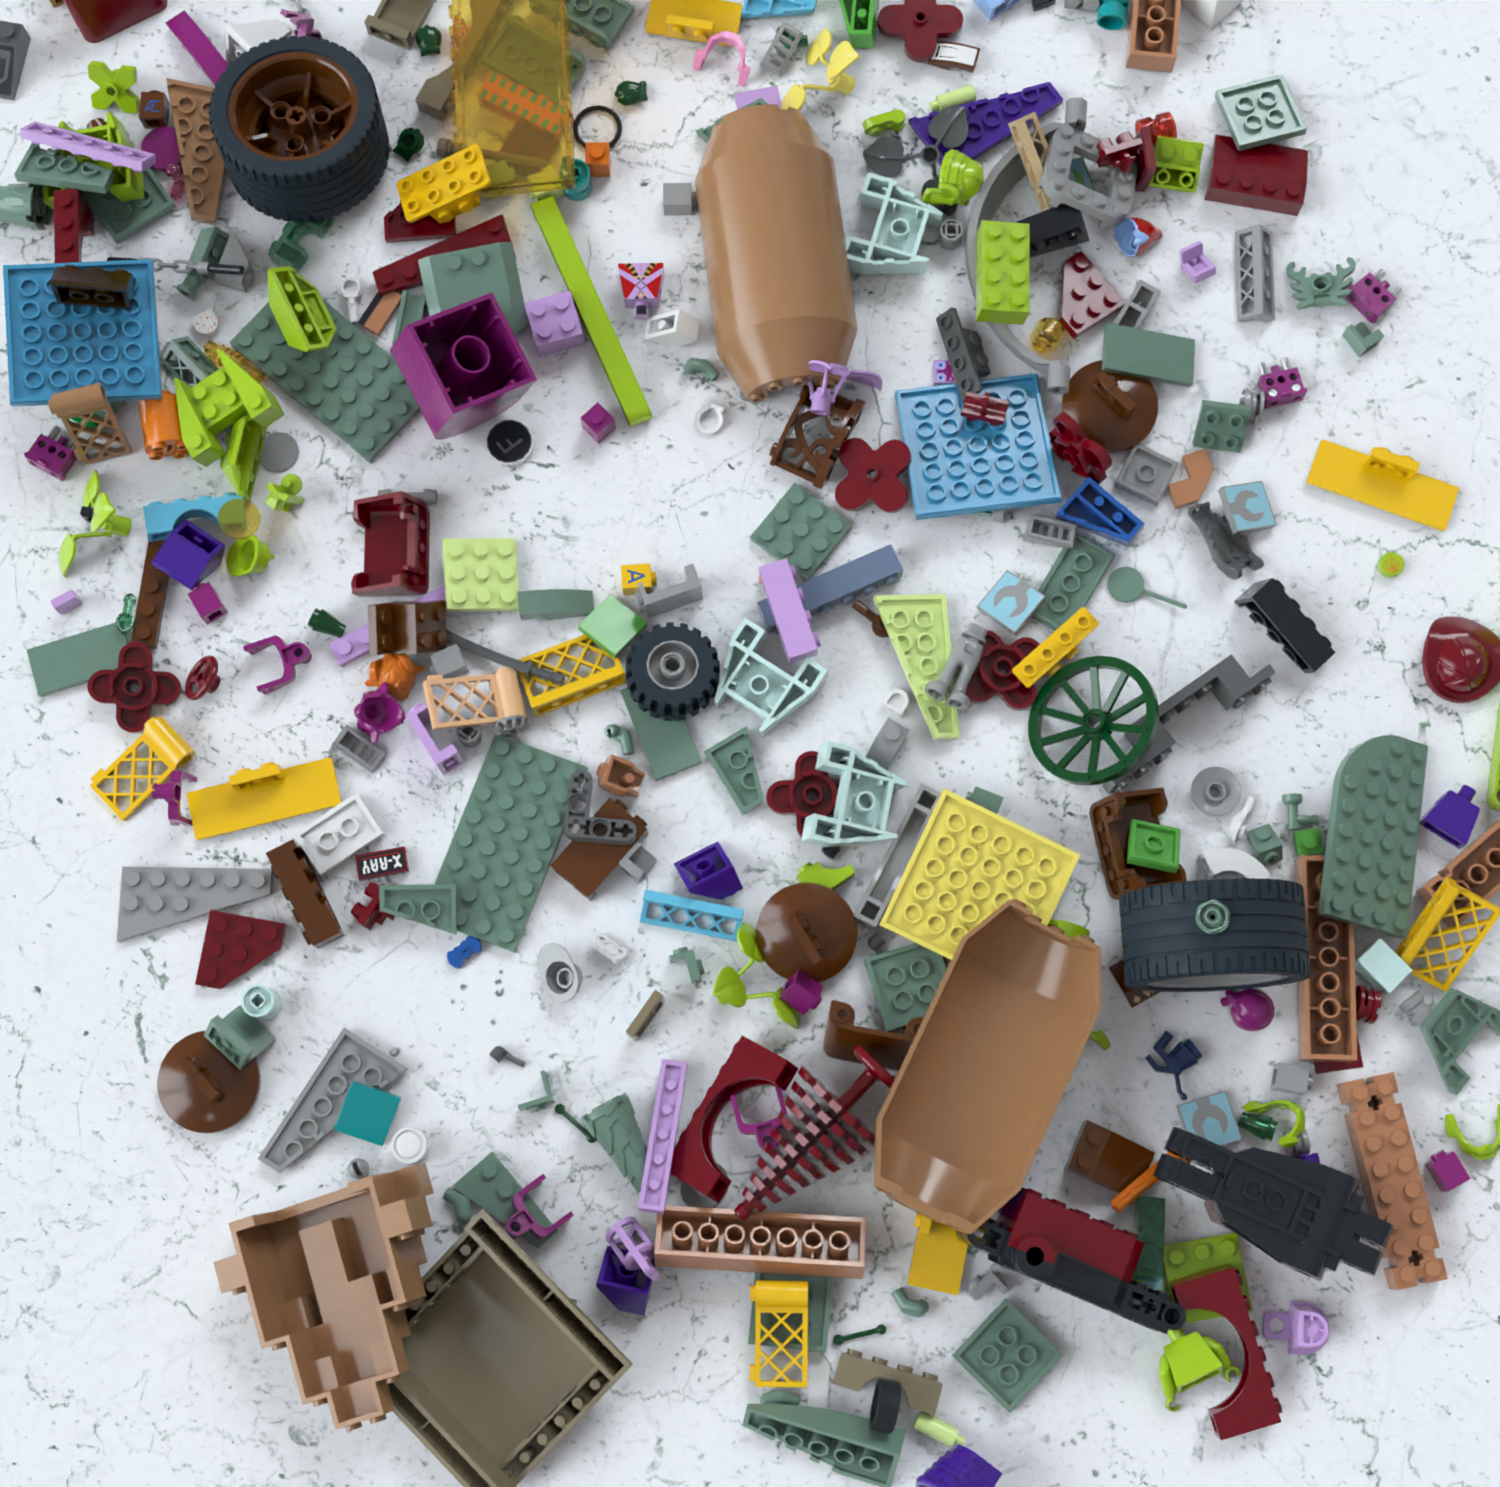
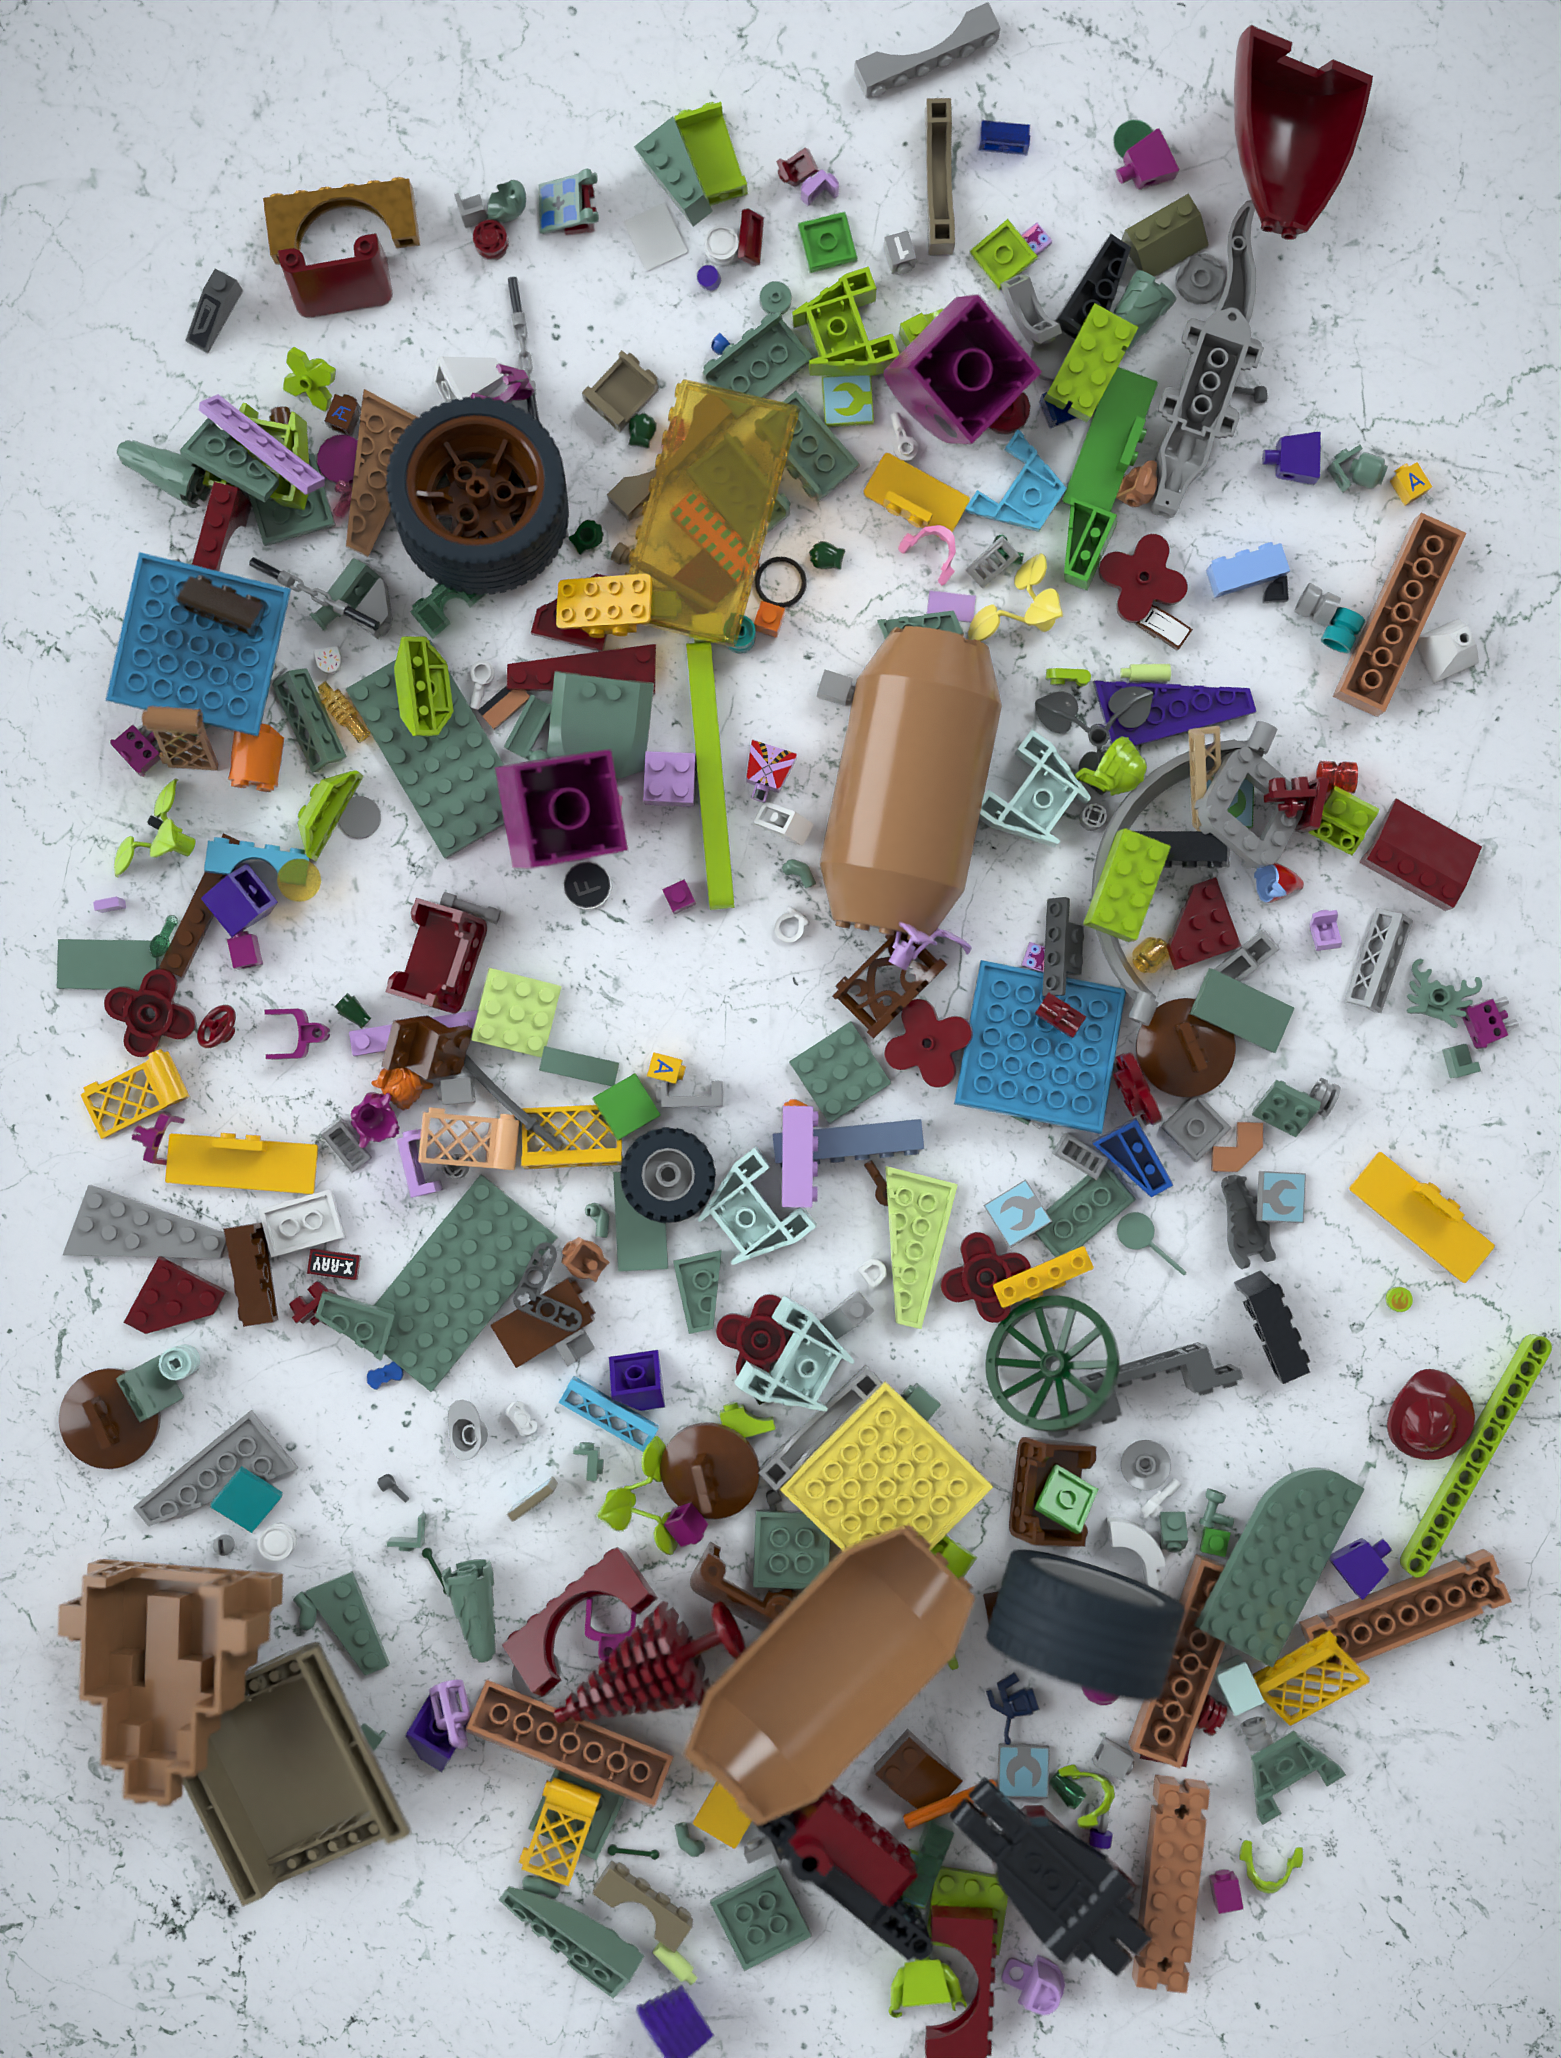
camera: 15 degrees right, 10 degrees up
(197, 46) = (408, 363): magenta slope -> none
(218, 404) = (312, 757): lime wedge -> none
(248, 556) = (297, 919): lime piece -> none
(284, 495) = (351, 868): lime hips -> none
(511, 725) = (497, 1175): light grey gear -> none
(525, 1221) = (359, 1649): magenta piece -> none
(662, 1136) = (511, 1617): lavender plate -> none
(818, 1385) = (579, 1886): white sticker -> none
(885, 1405) = (632, 1932): black tyre -> none
(966, 654) = (955, 1255): light grey piece -> none
(1214, 908) = (1080, 1642): sand green plate -> none
(1260, 112) = (1449, 793): plate -> none
(1280, 386) = (1355, 1090): magenta piece -> none

